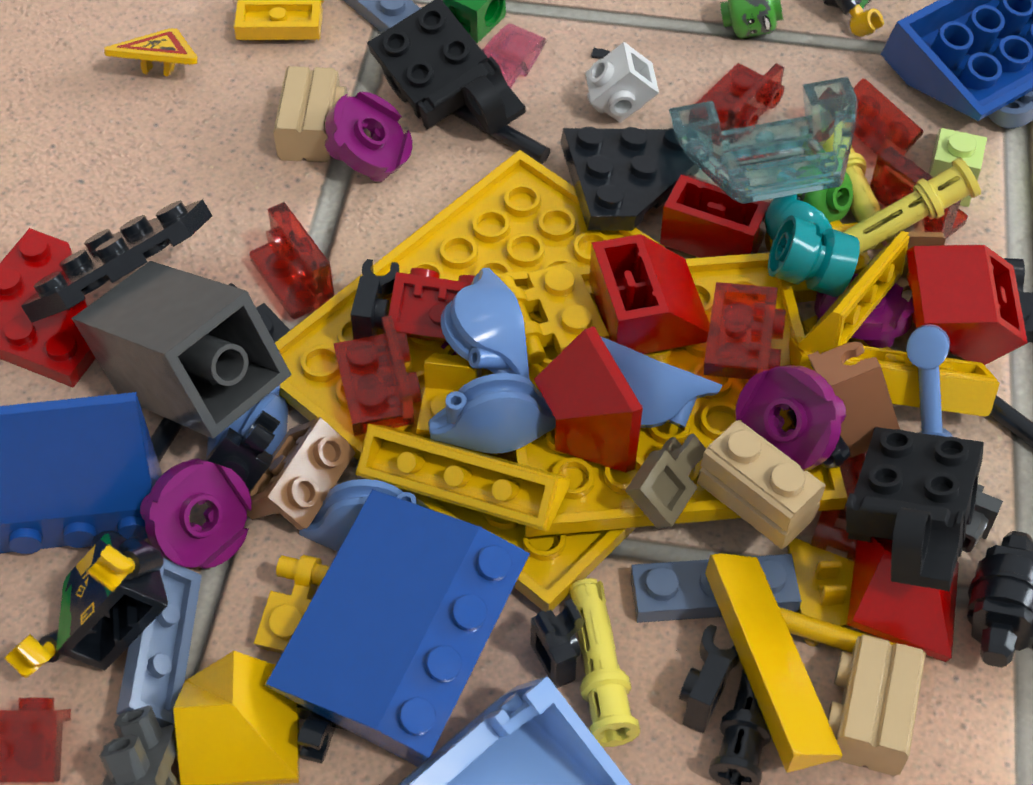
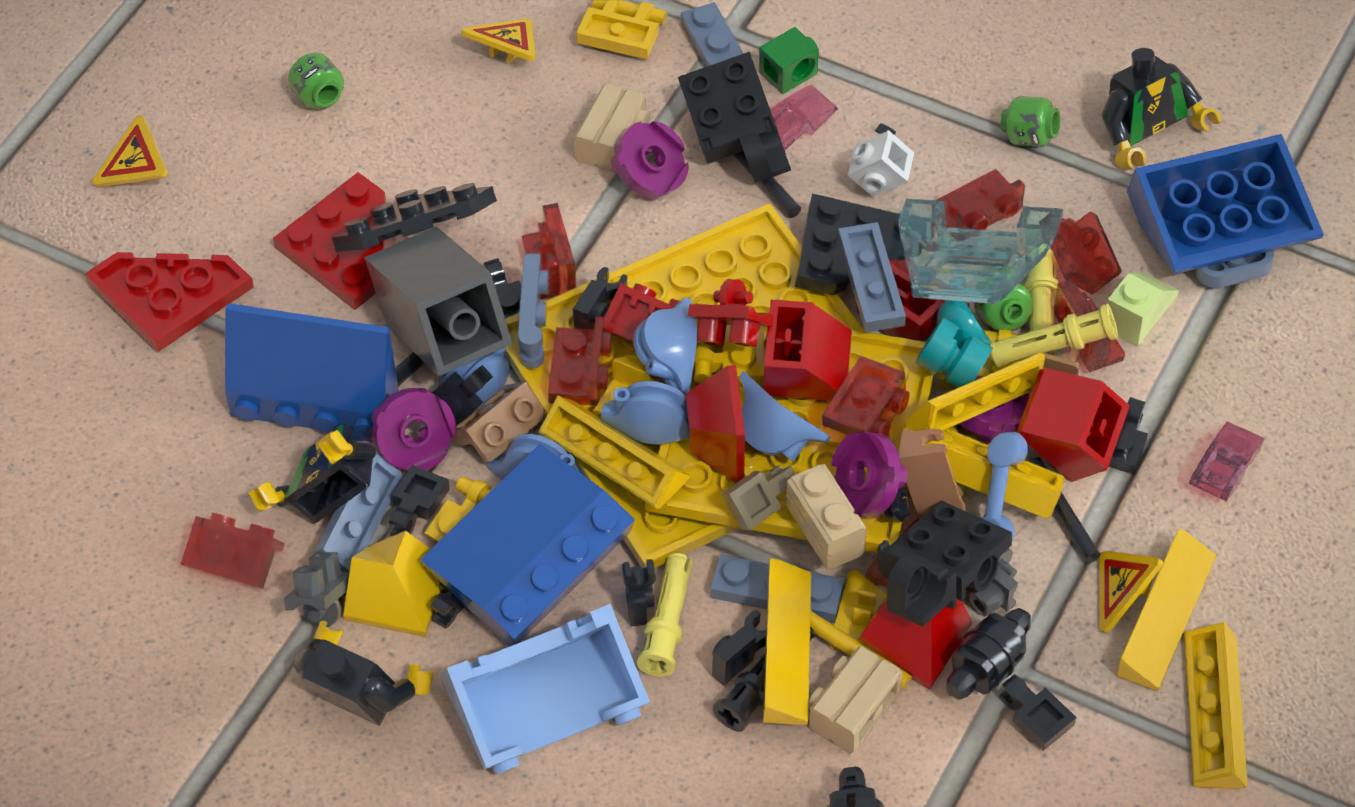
camera: 20 degrees right, 0 degrees up
(228, 596) = (416, 495): none -> black plate
(299, 333) = (532, 311): none -> sand blue plate
(574, 272) = (732, 311): none -> red hips
(682, 195) = (871, 277): none -> sand blue plate

